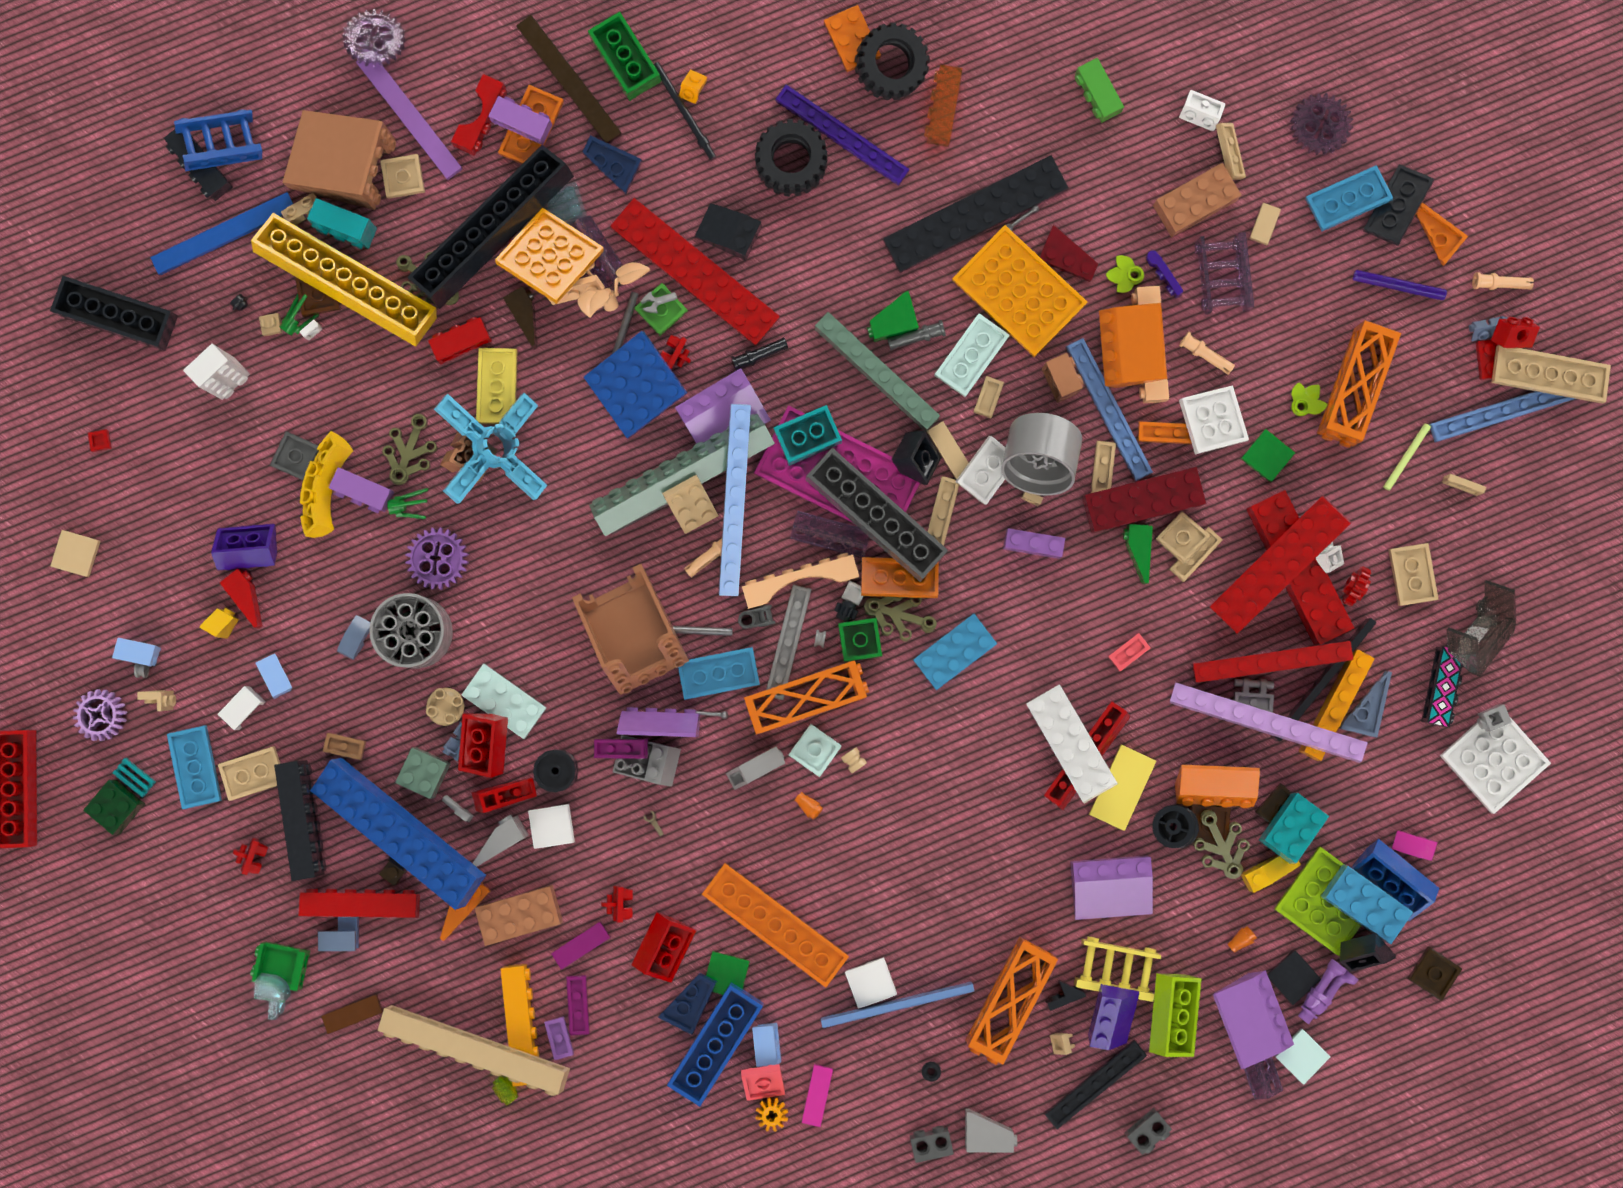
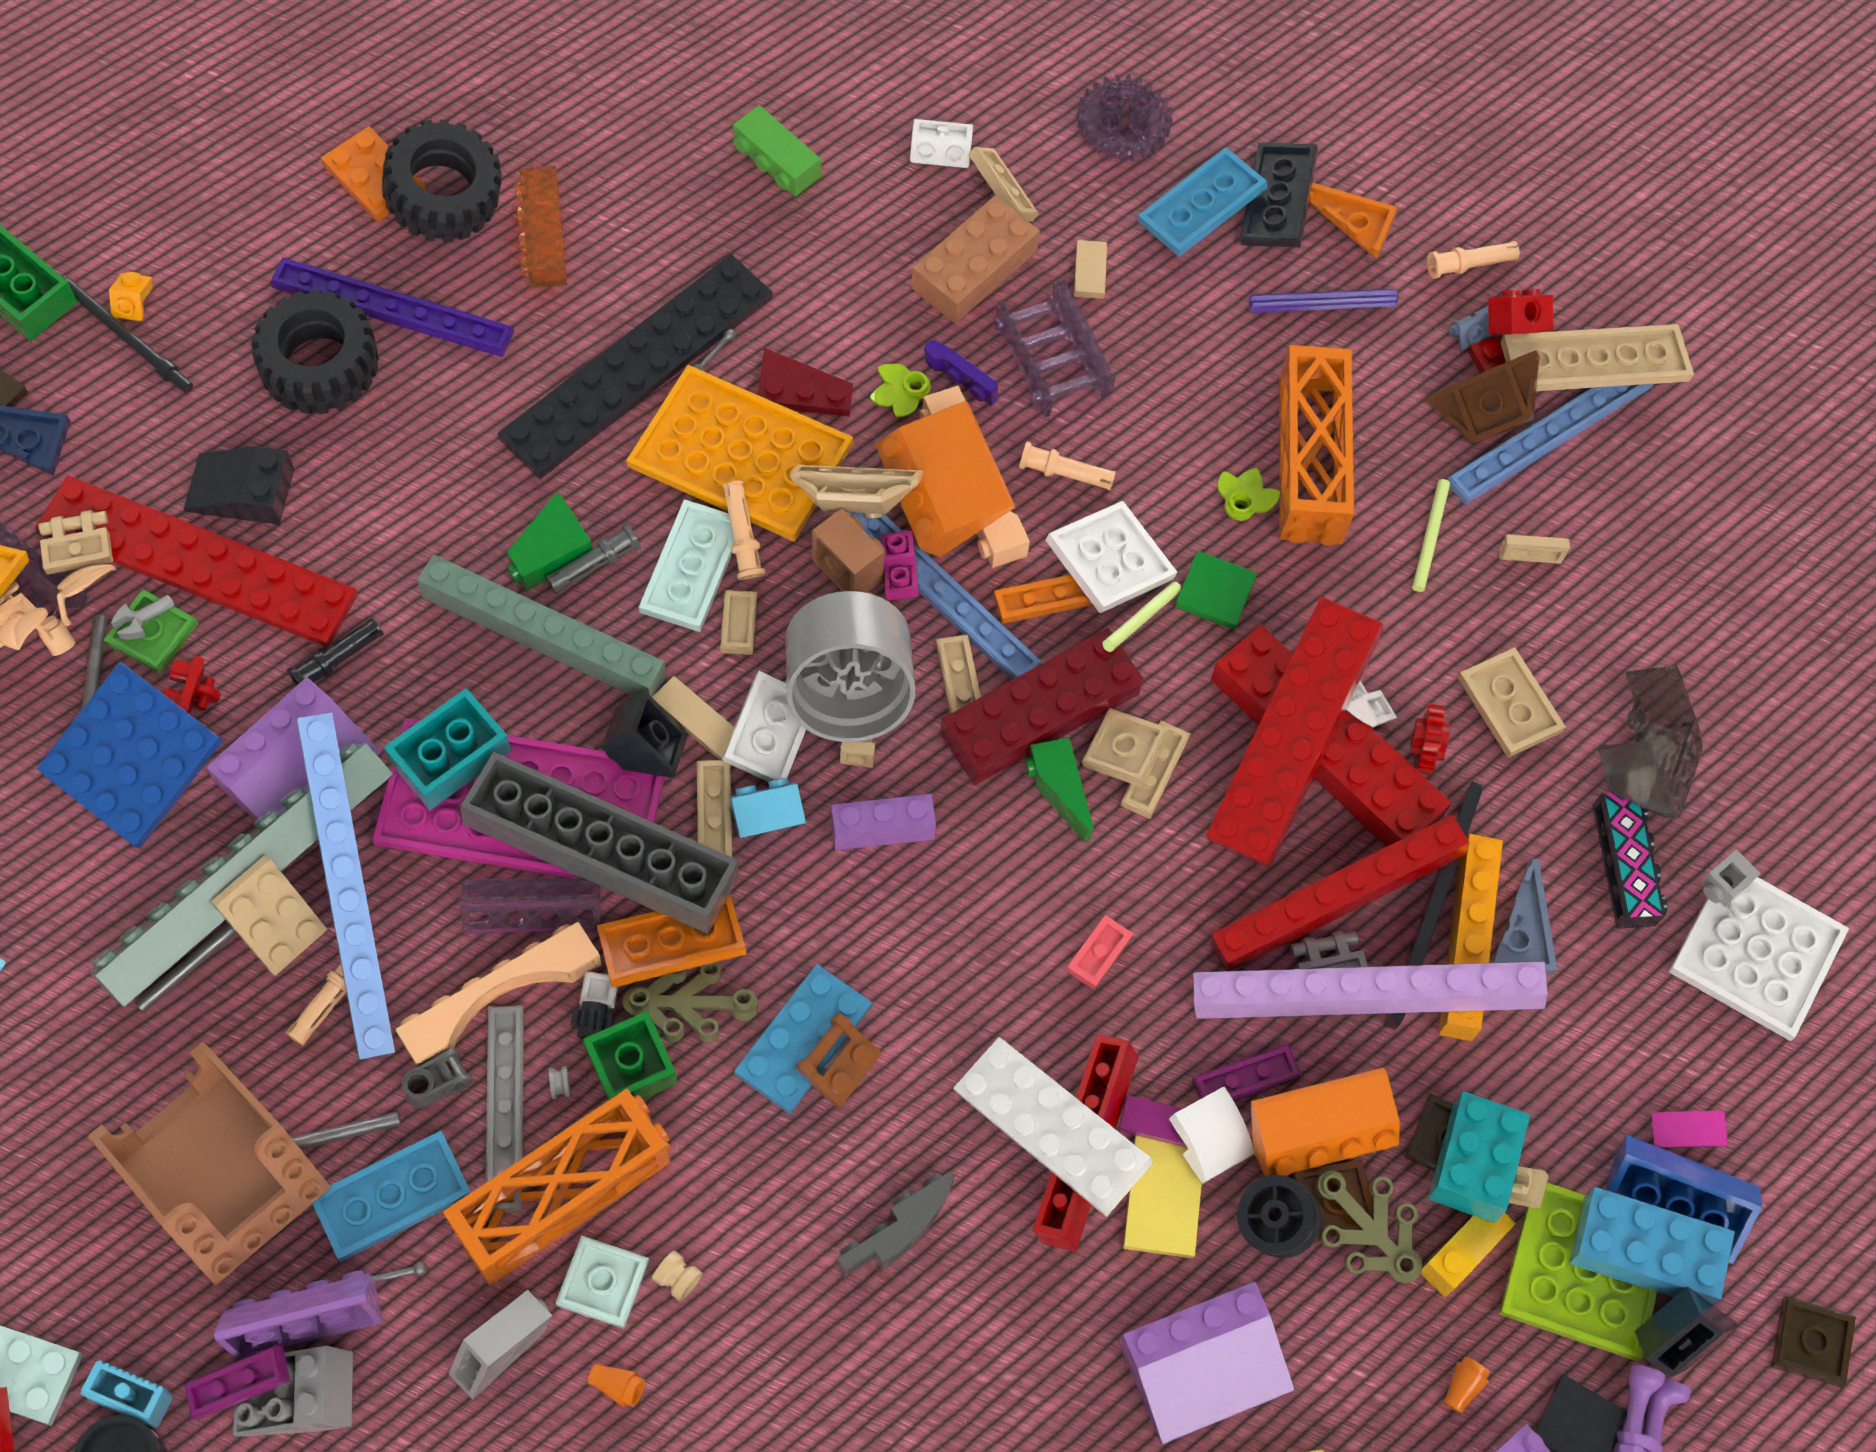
camera: 25 degrees left, 20 degrees down
(565, 738) = (126, 1394): none -> medium azure brick
(631, 251) = (77, 549): none -> tan plate
(971, 676) = (845, 1067): none -> dark orange plate
(972, 517) = (766, 808): none -> medium azure brick
(983, 767) = (911, 1220): none -> dark grey slope
(1005, 353) = (745, 545): none -> light nougat pin
(1079, 340) = (855, 489): none -> tan wedge
(1091, 390) = (900, 565): none -> dark pink slope
(1128, 755) = (1150, 1120): none -> magenta tile
(1156, 771) = (1213, 1134): none -> white slope
(1185, 744) = (1250, 1074): none -> magenta tile
(1218, 464) = (1141, 616): none -> yellowish green bar
(1315, 850) = (1528, 1187): none -> tan tile
(1475, 384) = (1491, 399): none -> reddish brown wing

